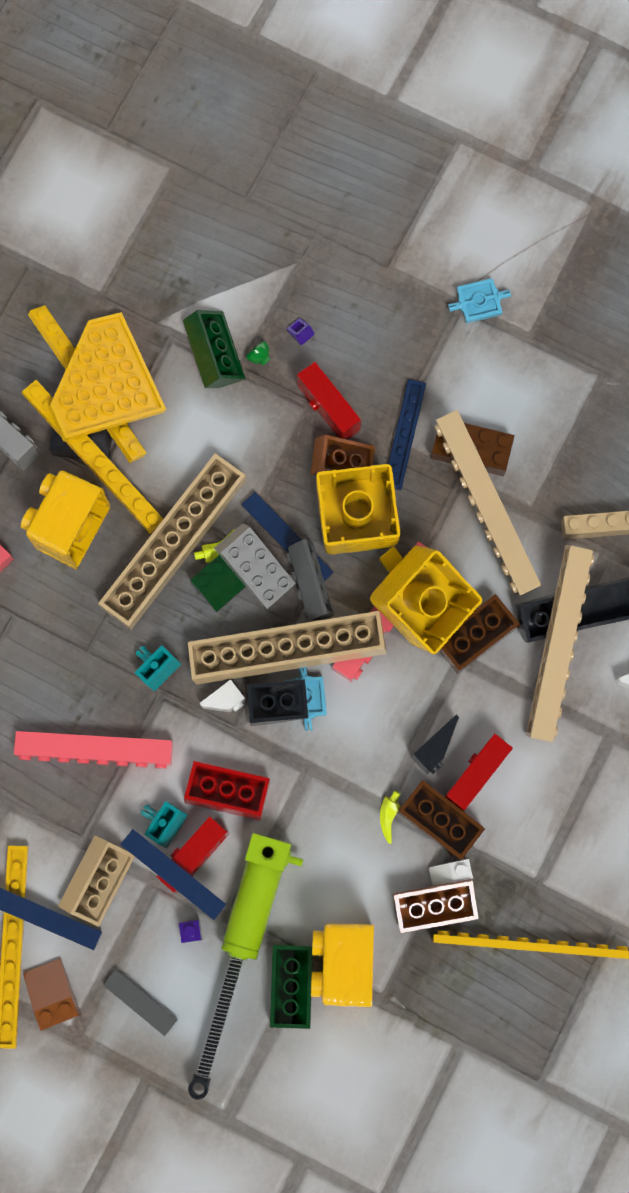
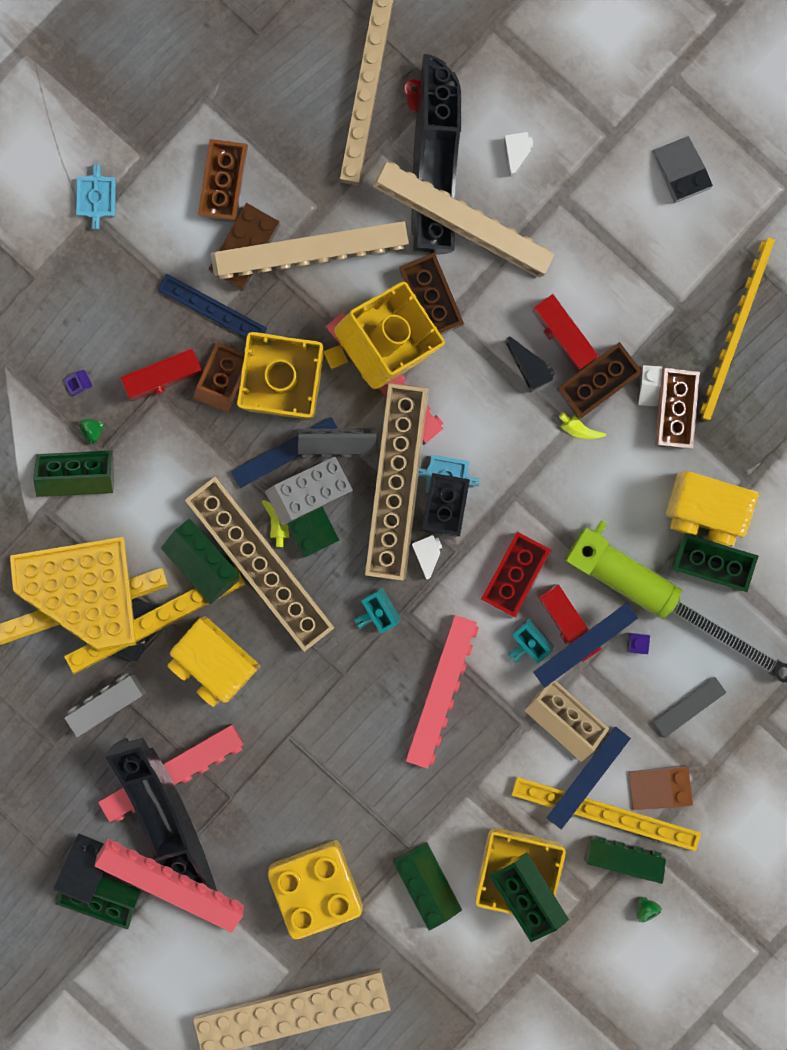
camera: 75 degrees left, 10 degrees up
(160, 484) = (200, 561): none -> dark green slope
(529, 409) = (222, 180): none -> dark orange brick

